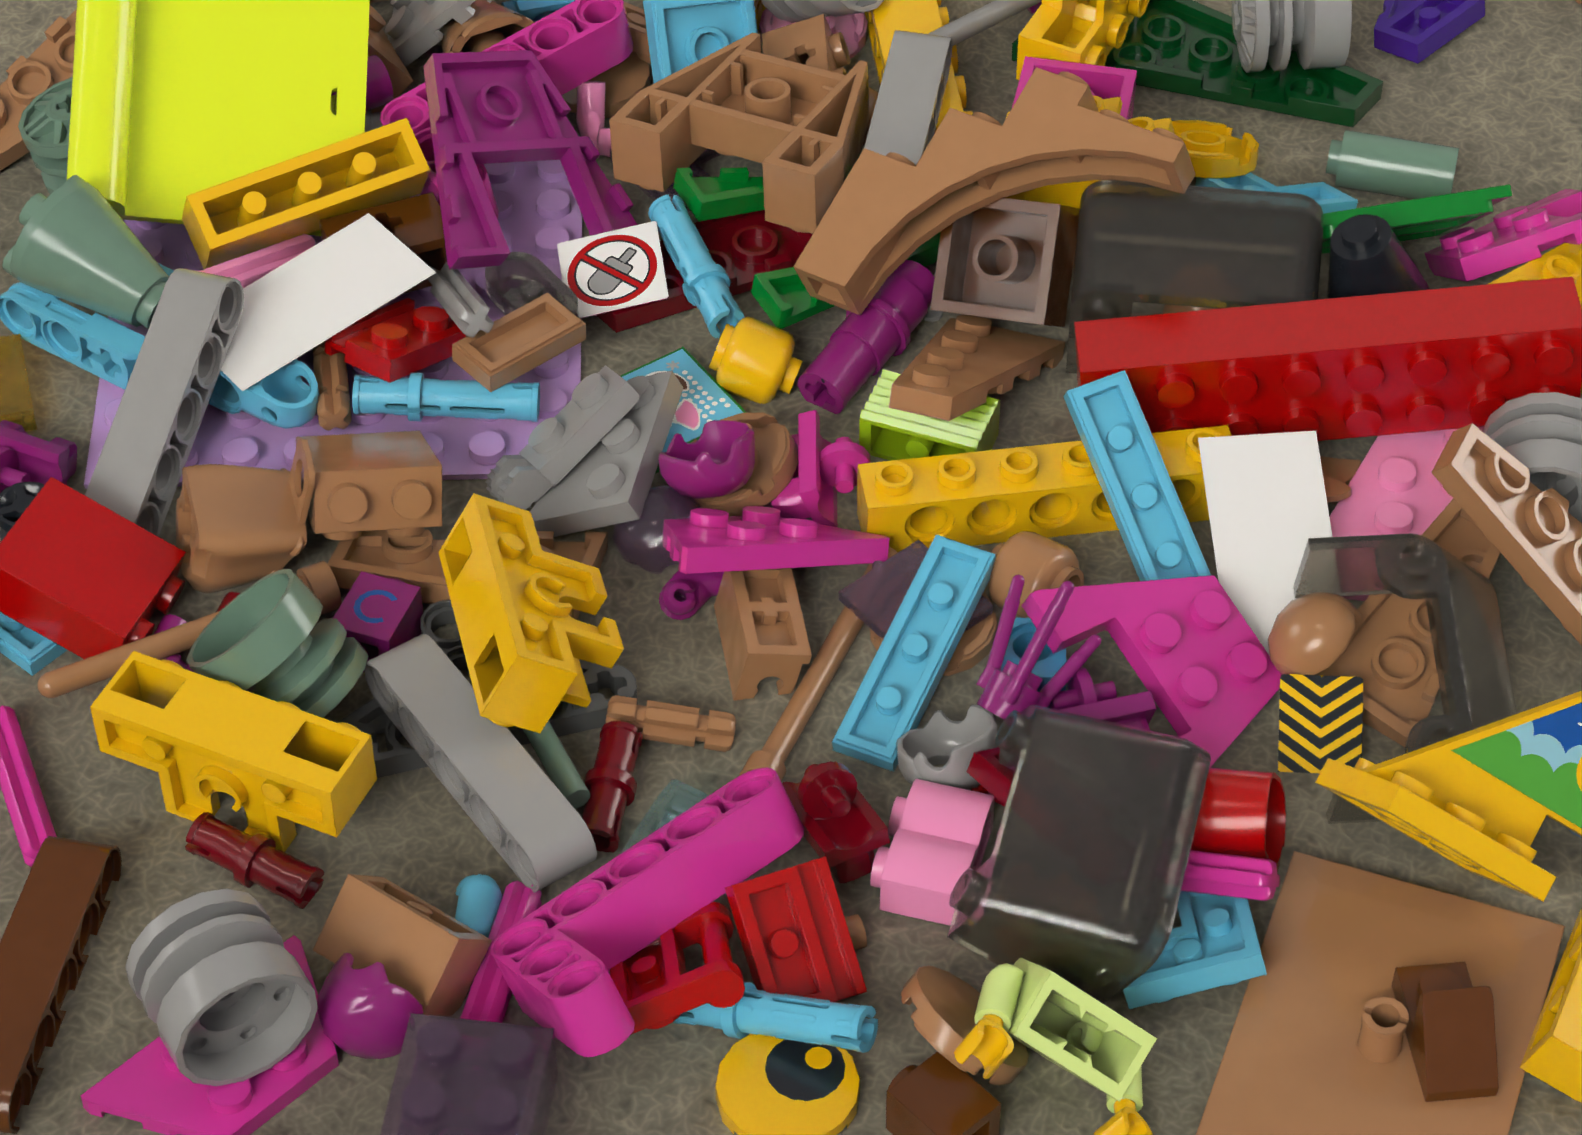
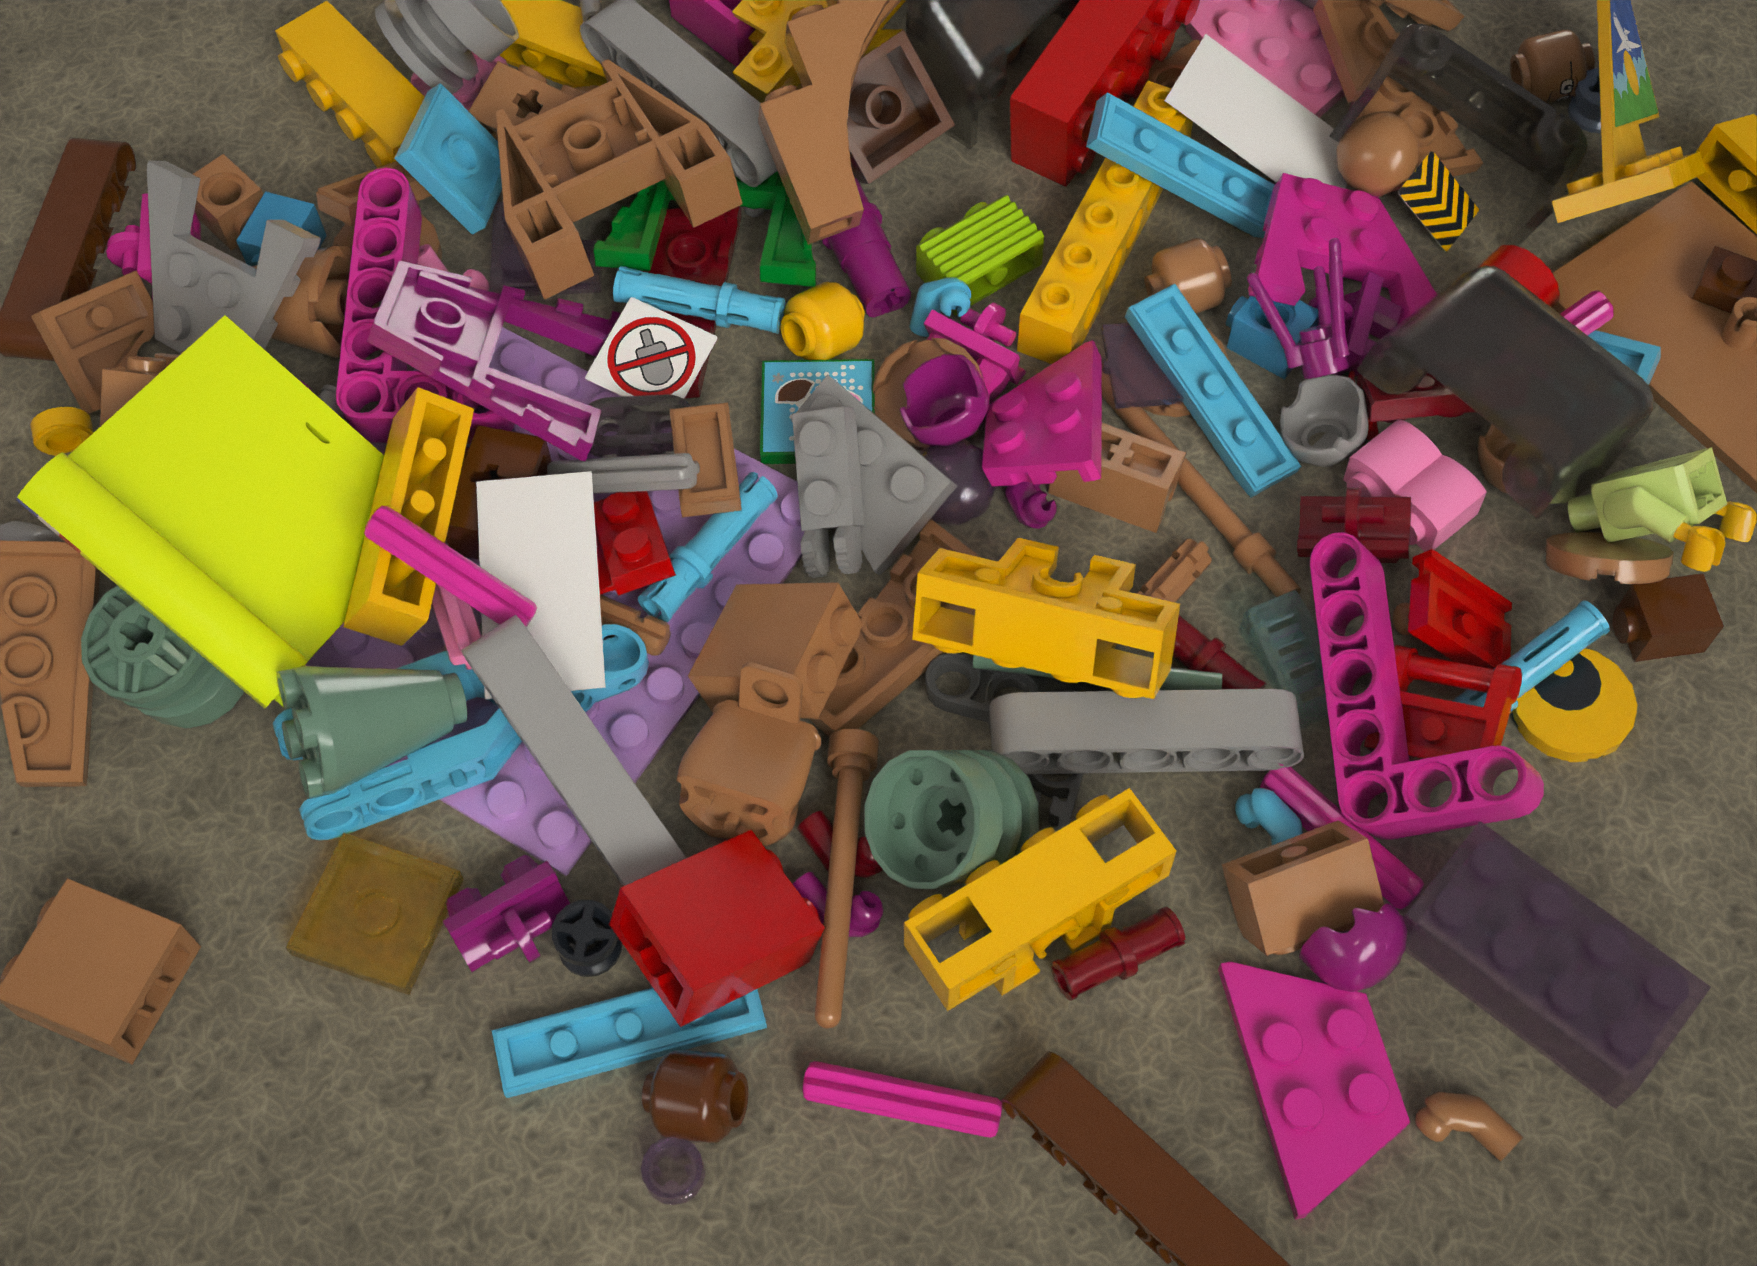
camera: 55 degrees left, 15 degrees up
(221, 987) = (1329, 1041): light grey wheel -> none
(255, 228) = (447, 567): none -> dark pink axle
(381, 613) = (921, 719): magenta brick -> none
(840, 416) = (942, 297): none -> medium azure arm
(968, 363) = (959, 195): medium nougat wing -> none

